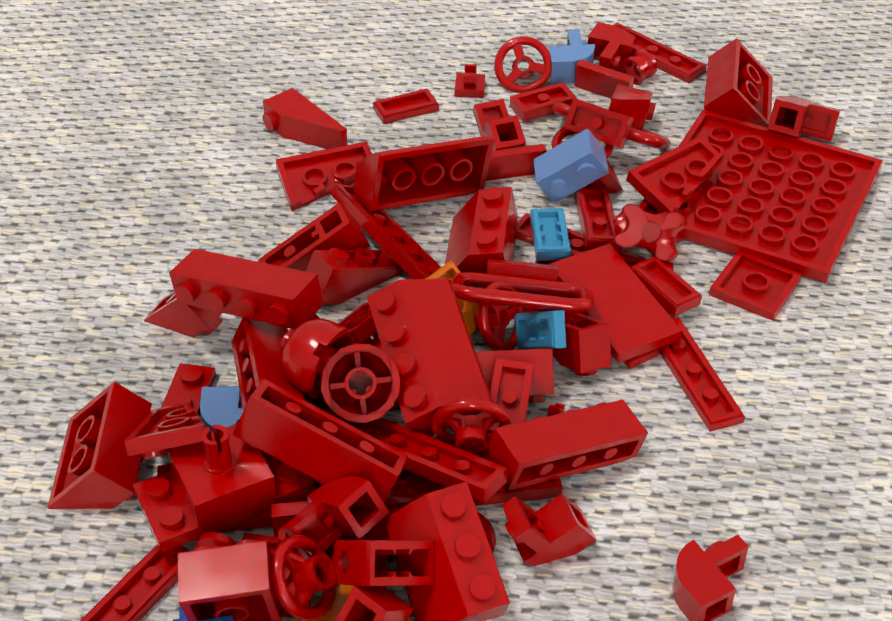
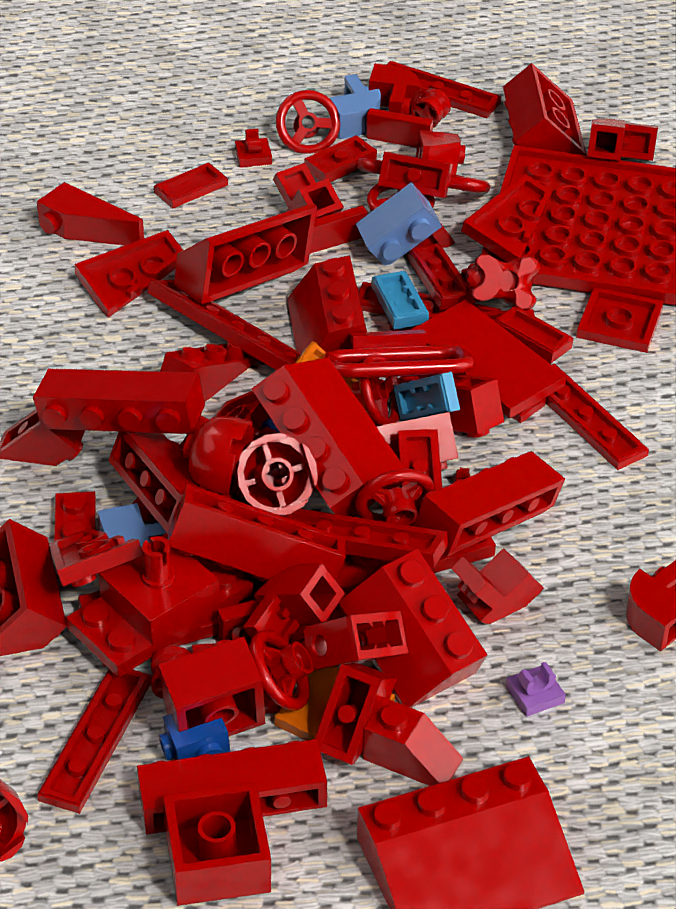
camera: 15 degrees left, 0 degrees up
(330, 230) = (164, 333): red slope -> none

